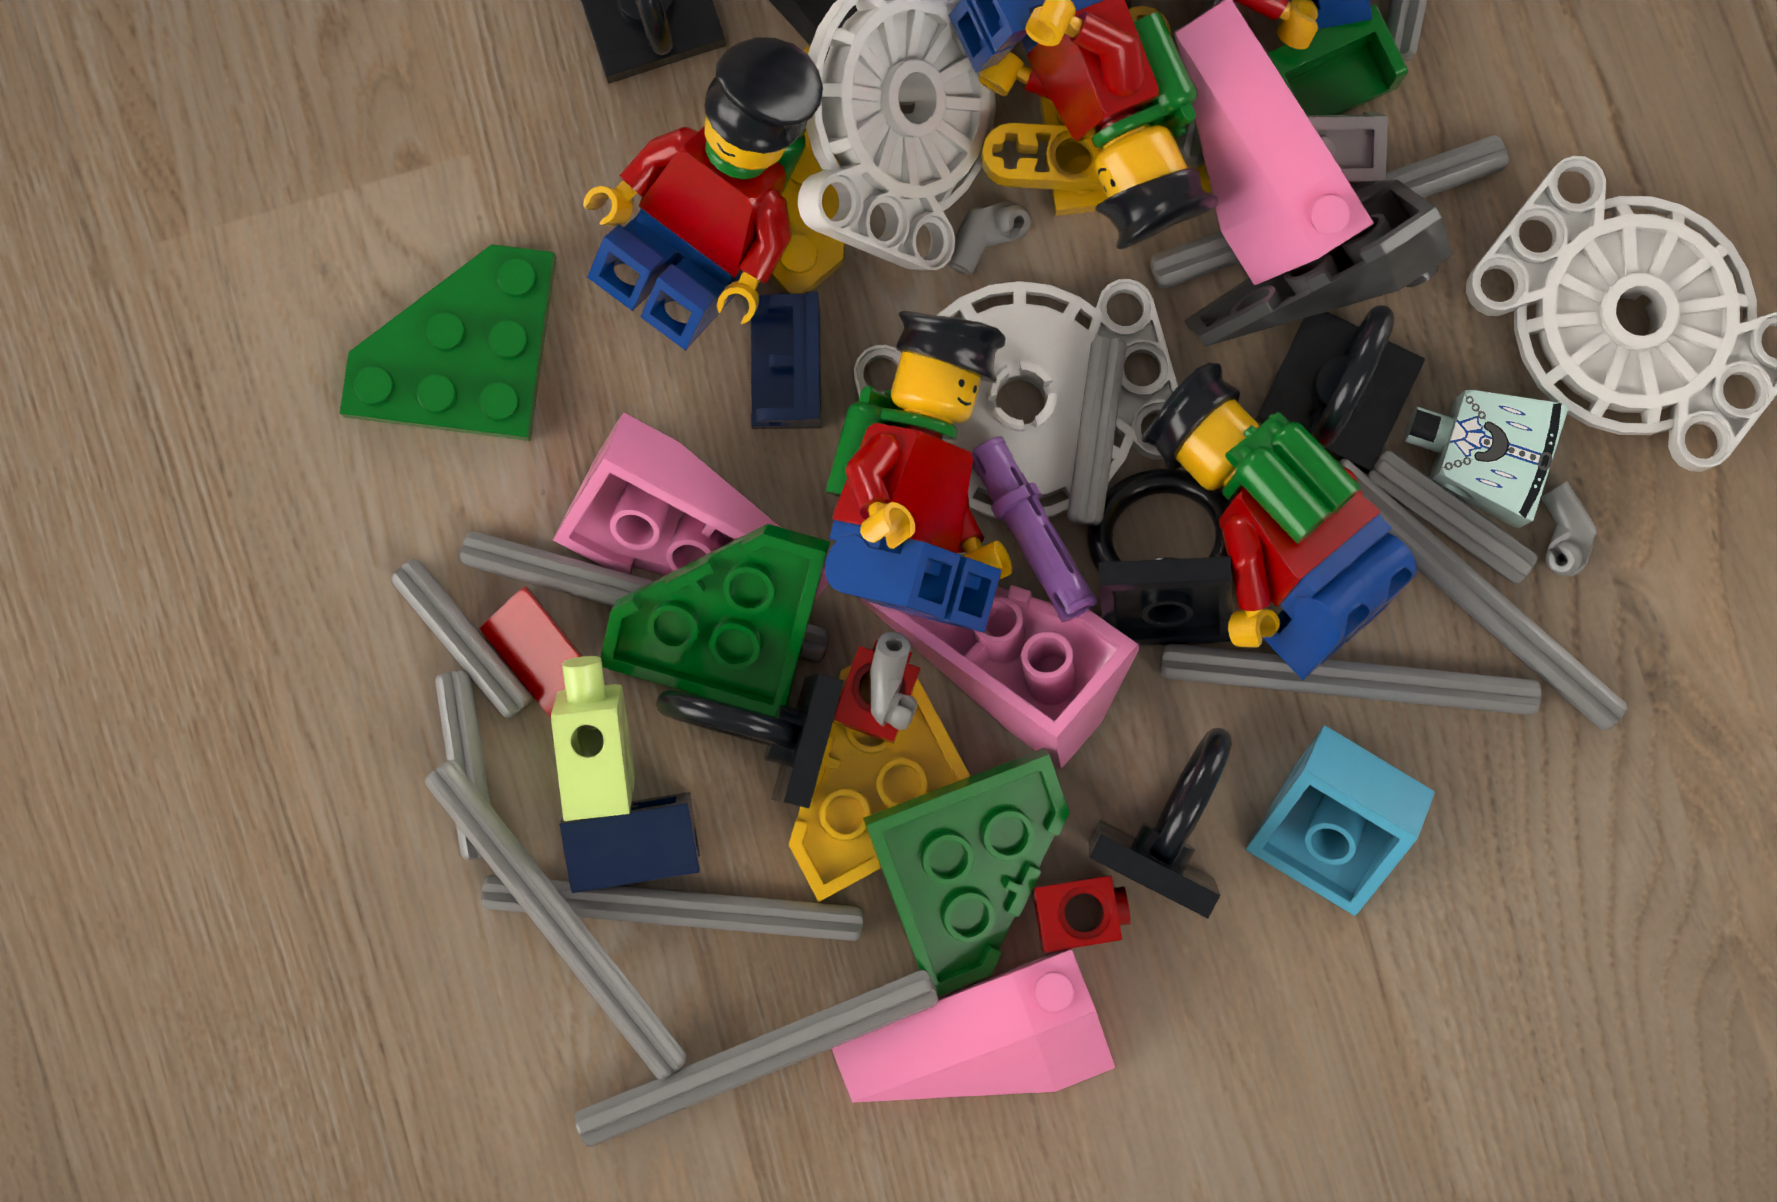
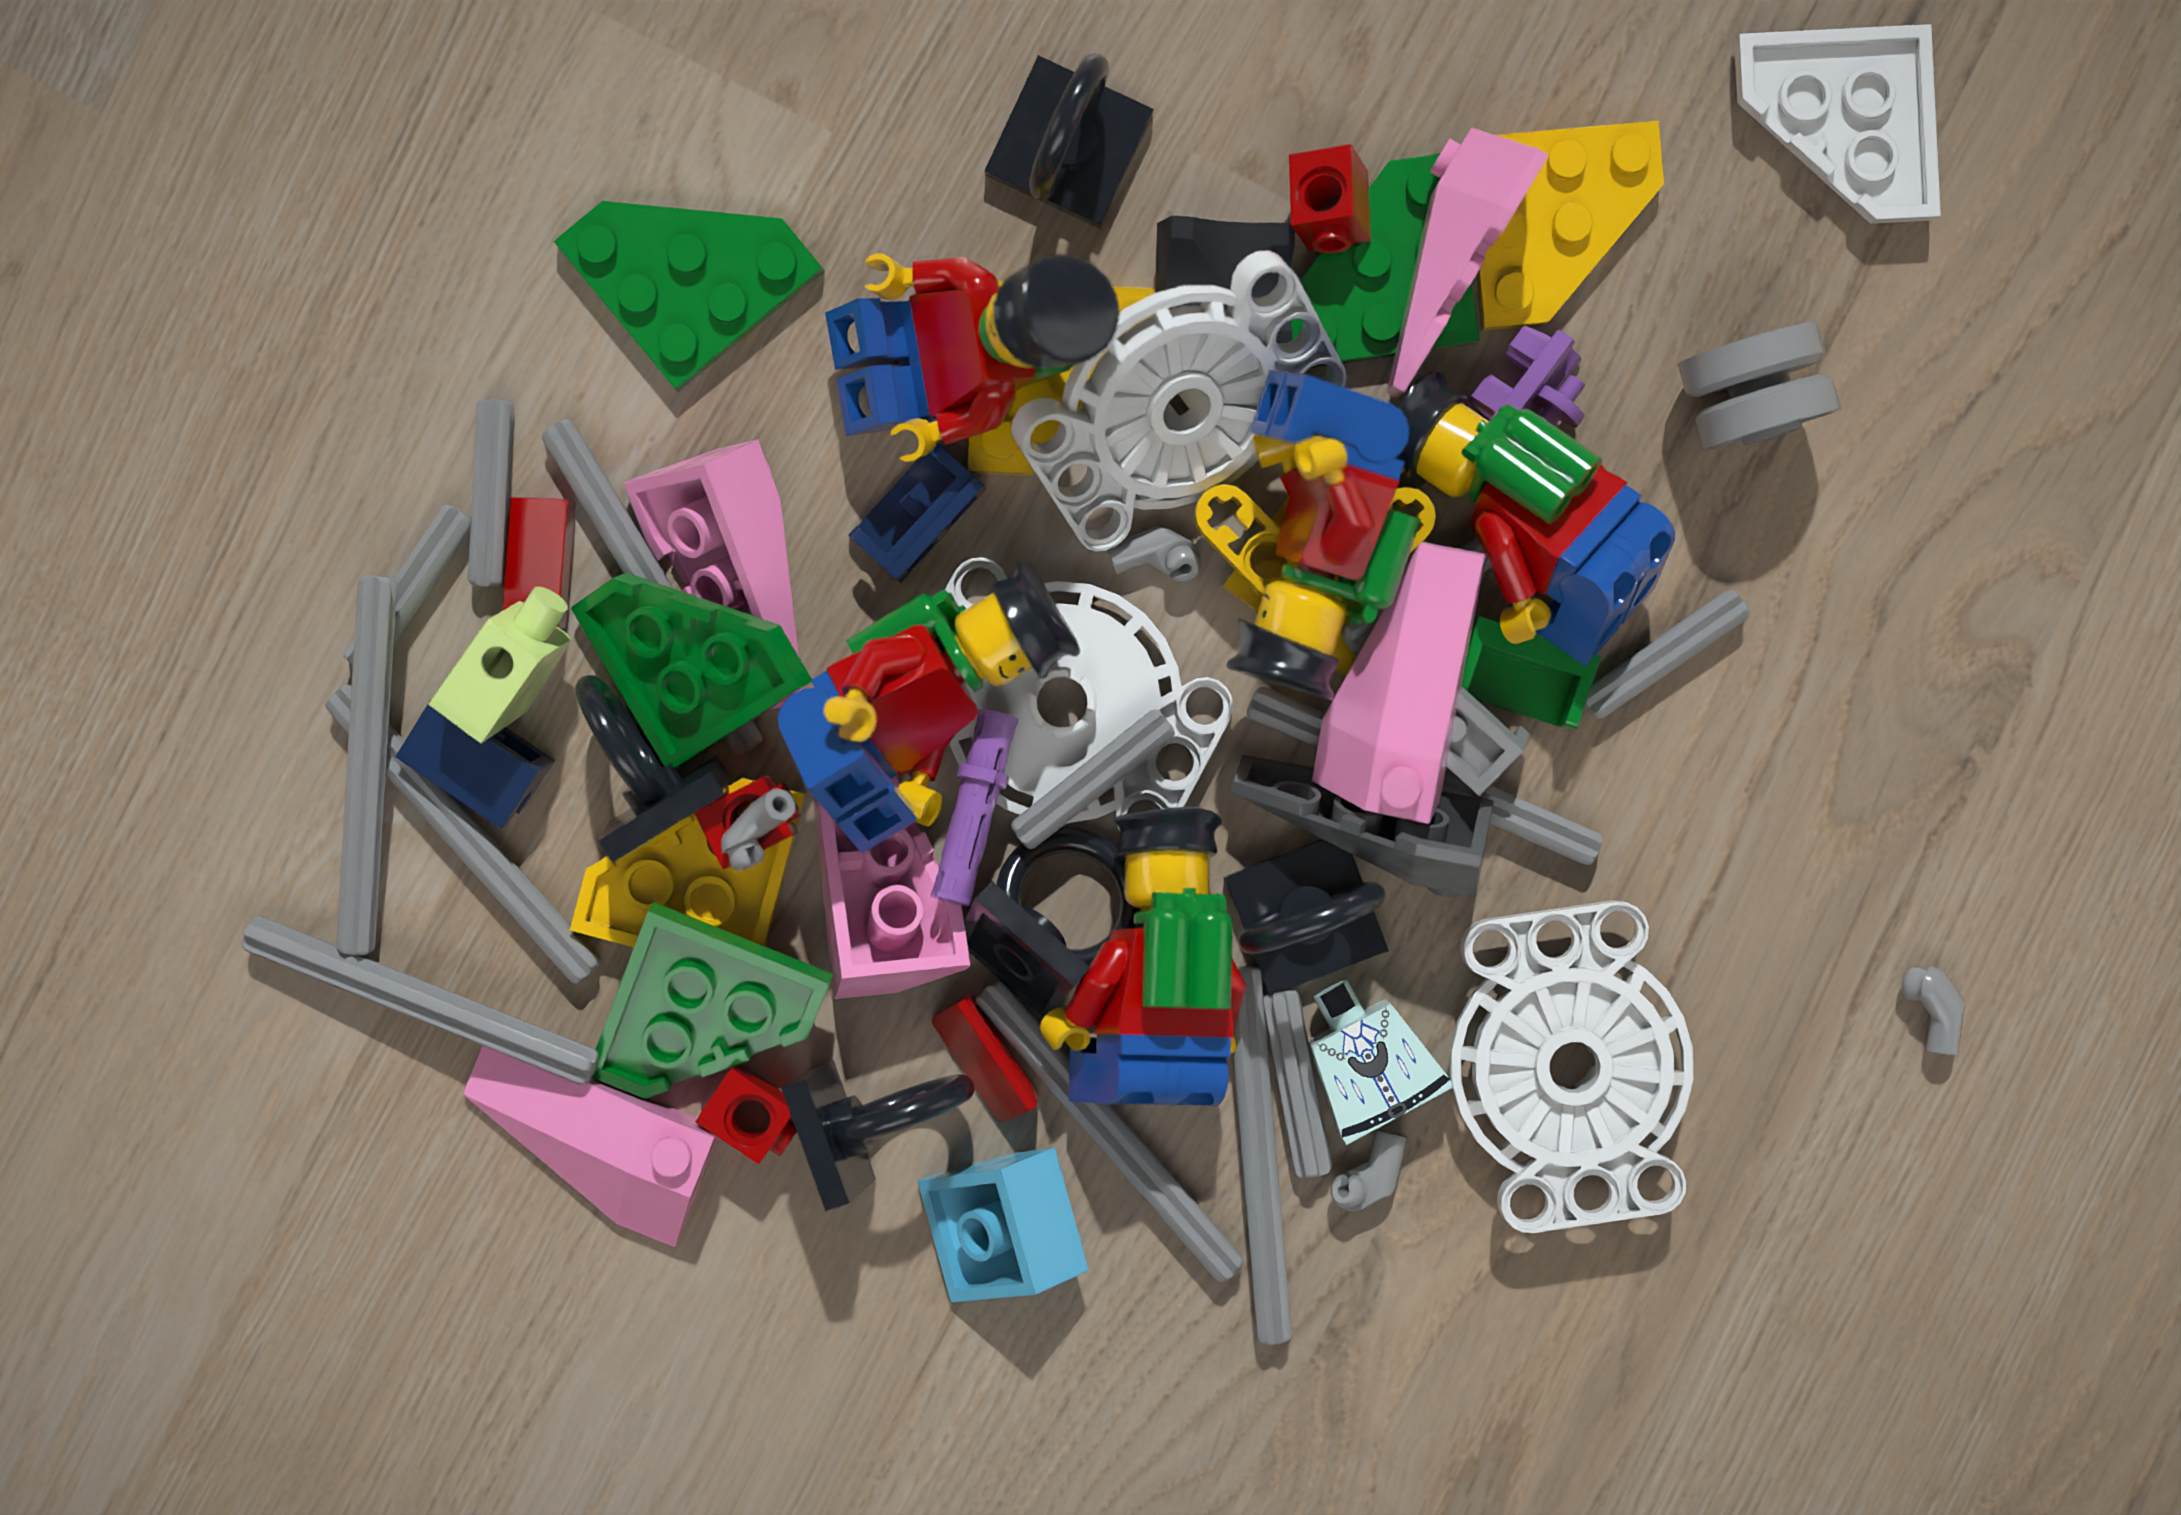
camera: 45 degrees right, 5 degrees up
(1198, 707) = (985, 1059): none -> red slope

